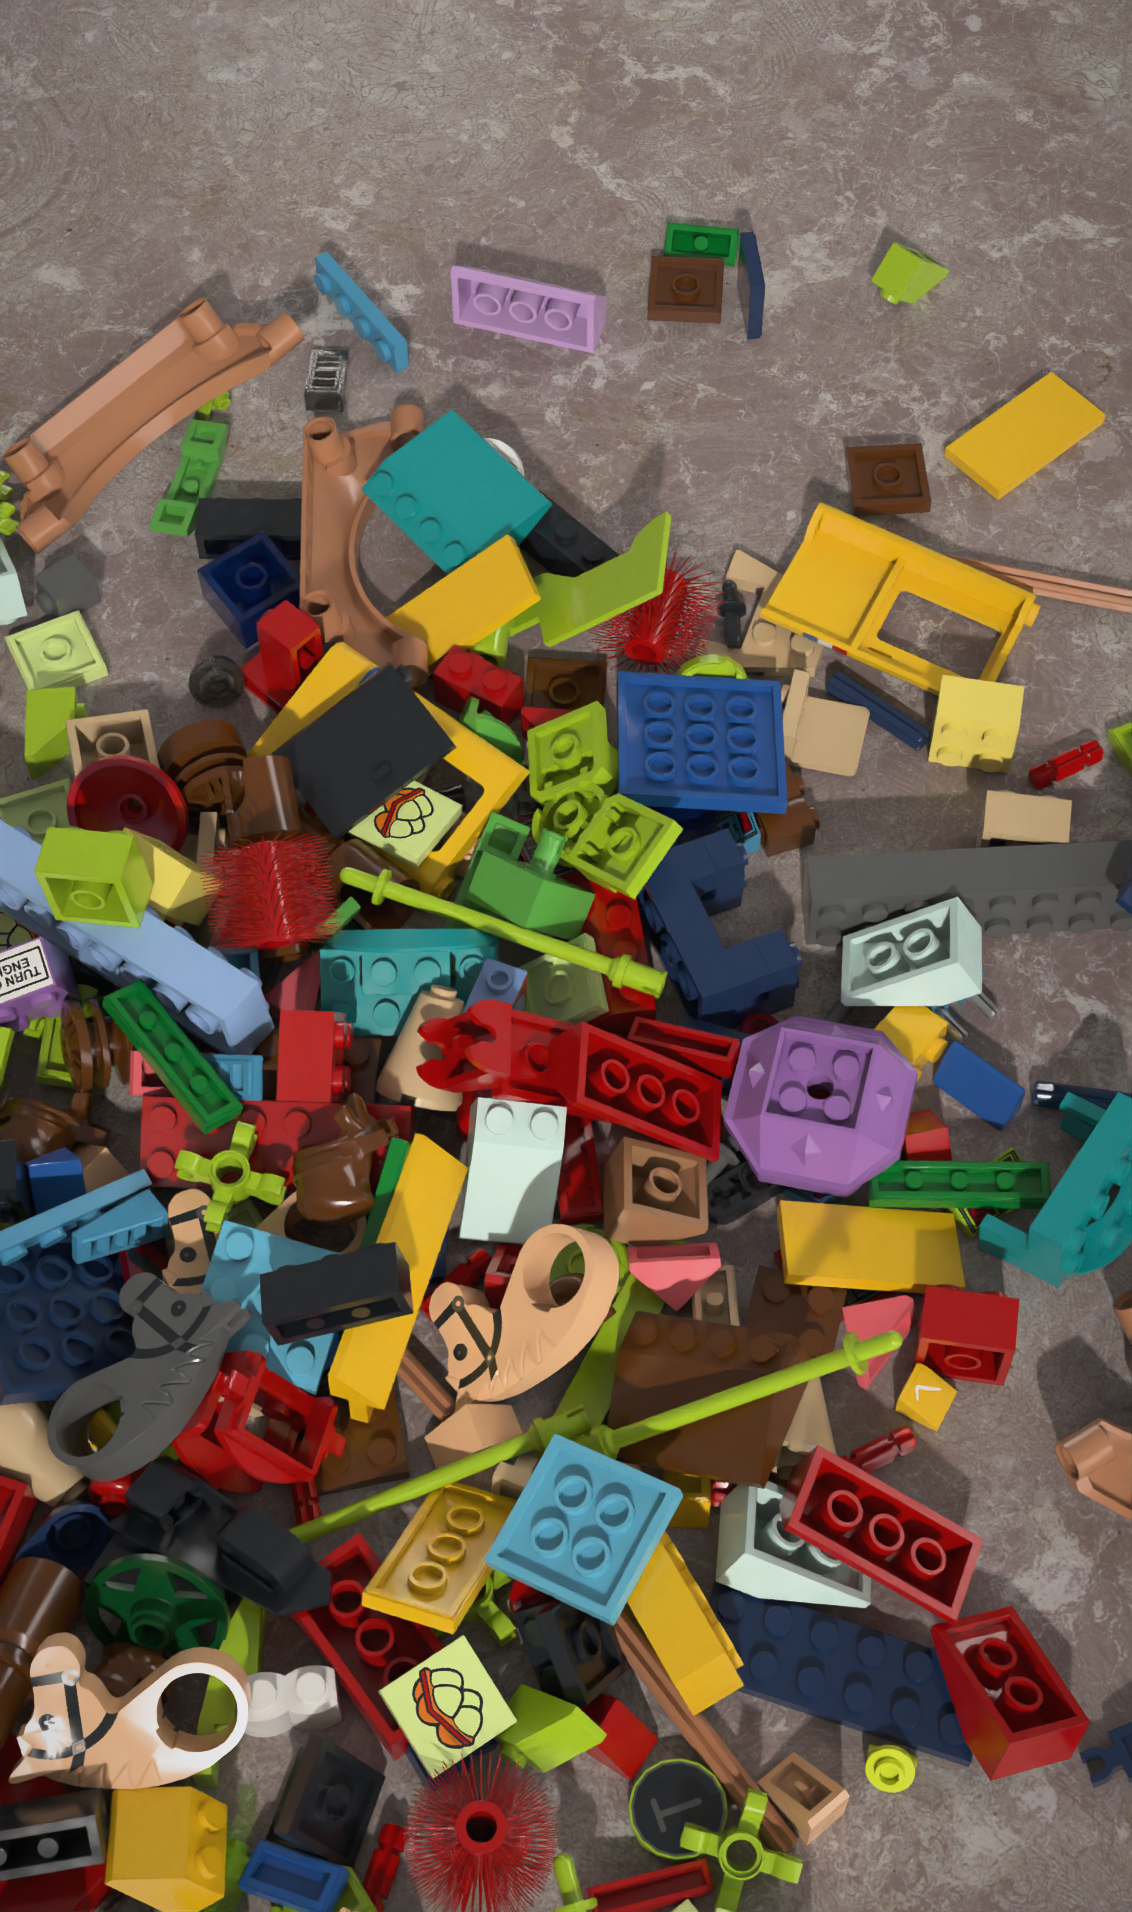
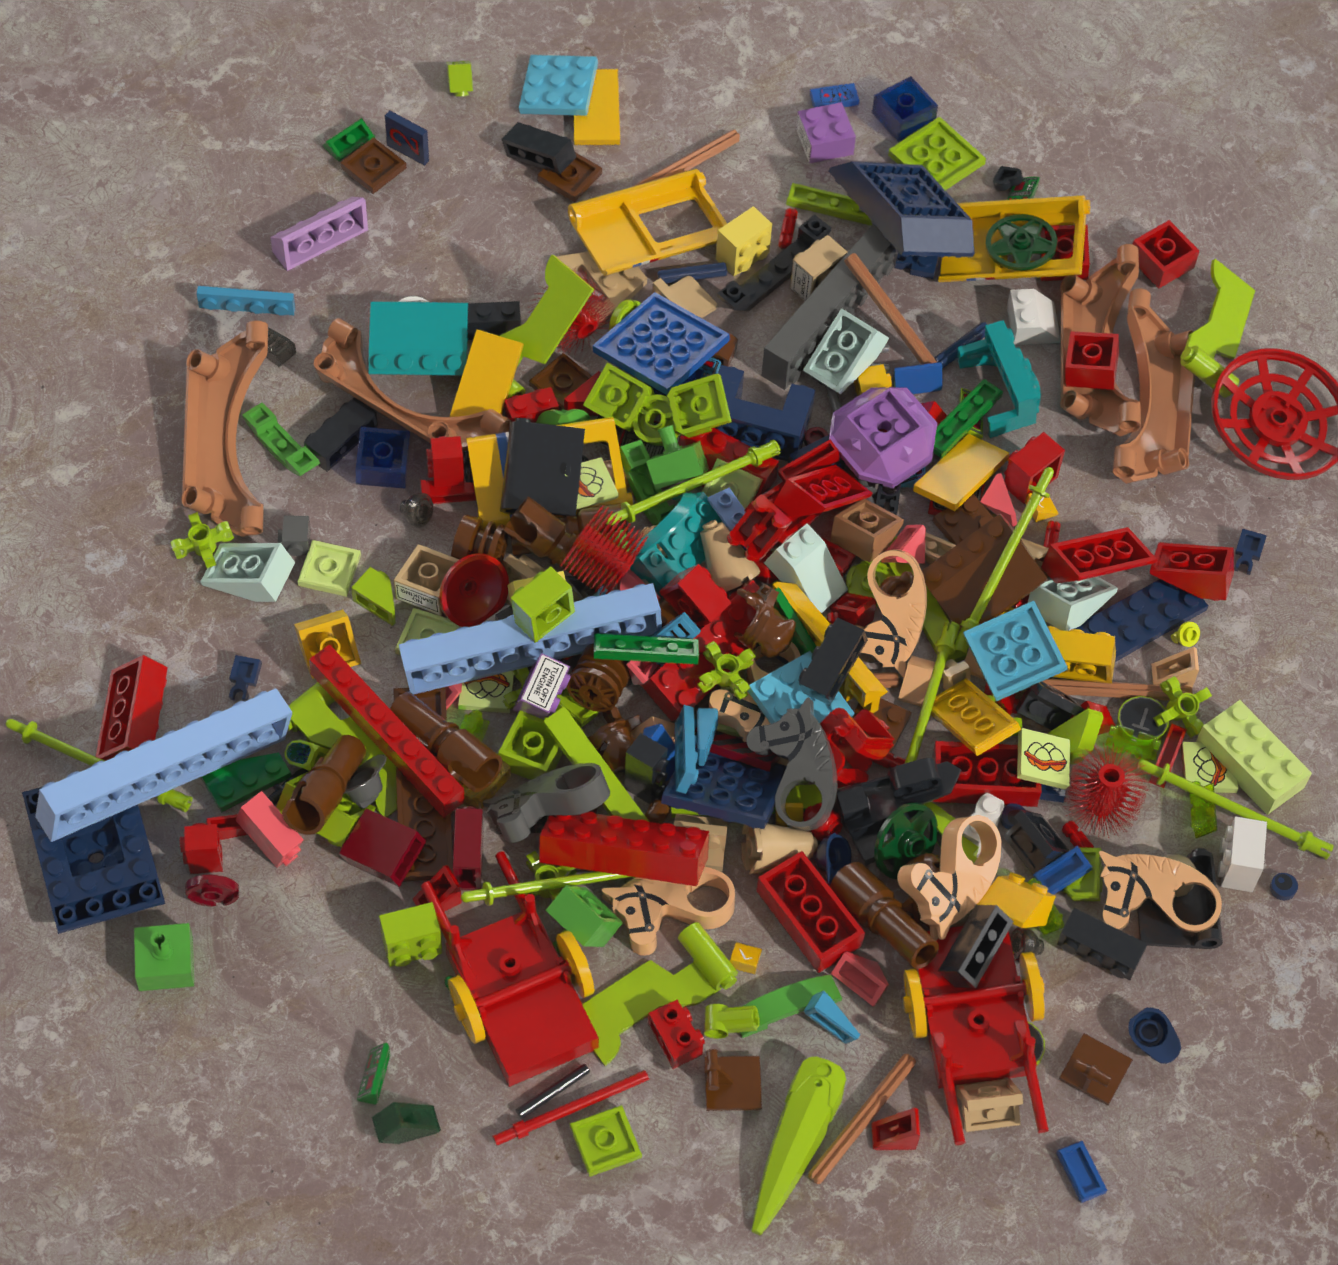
camera: 55 degrees left, 0 degrees up
(352, 1735) = (1007, 817): none -> dark blue tile
(618, 1842) = (1141, 747): none -> clear neon green hinge
(884, 417) = (538, 147): none -> black brick
(963, 797) = (775, 272): none -> black slope
(1009, 374) = (558, 85): none -> medium azure plate
(1035, 965) = (889, 309): none -> nougat axle

